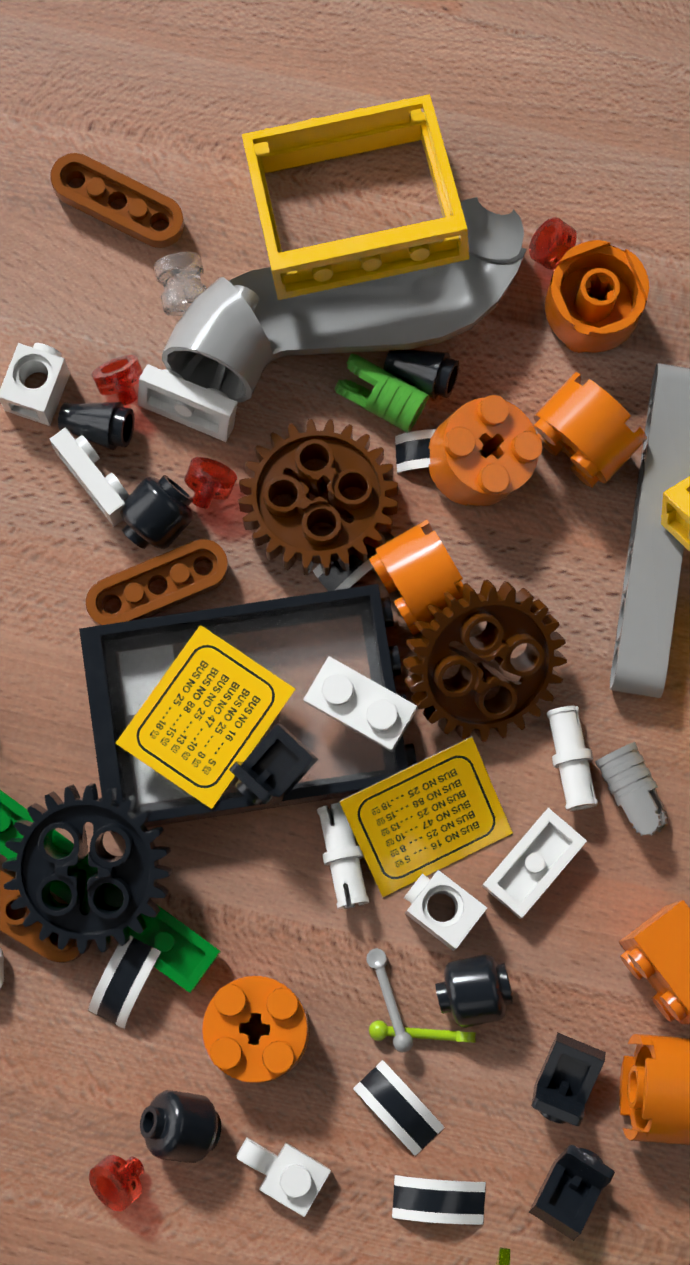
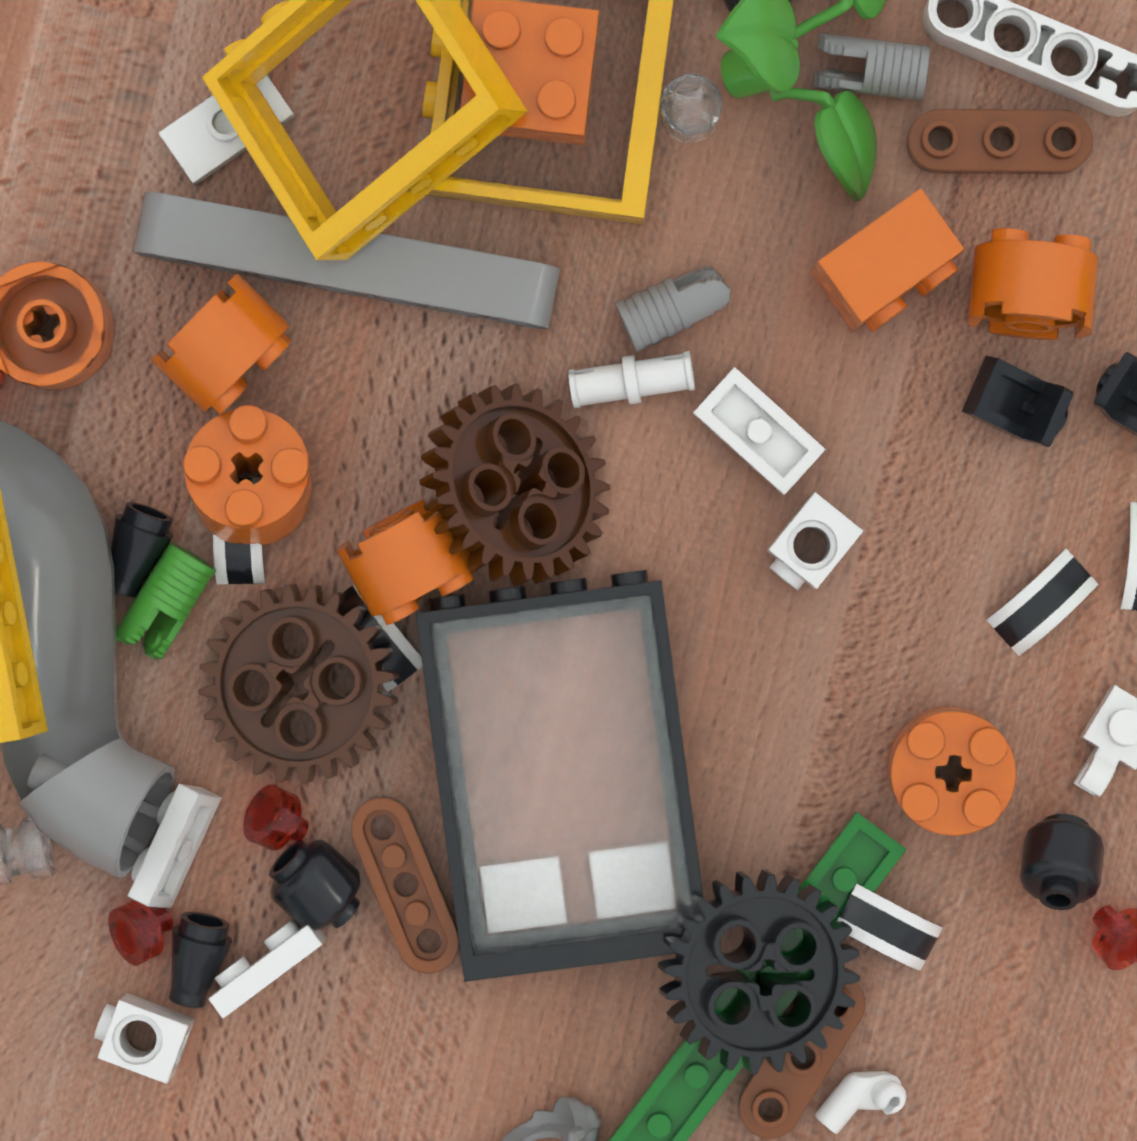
camera: 85 degrees left, 10 degrees up
(205, 716) = (576, 827): yellow sticker -> none
(273, 767) = (644, 747): black bracket -> none
(342, 857) = (744, 662): white pin -> none
(360, 704) = (566, 639): white plate -> none
(378, 960) = (869, 622): light grey hinge -> none
(379, 1031) = (952, 622): lime hinge -> none
(426, 816) = (701, 560): yellow sticker -> none
(475, 990) = (910, 508): black head -> none

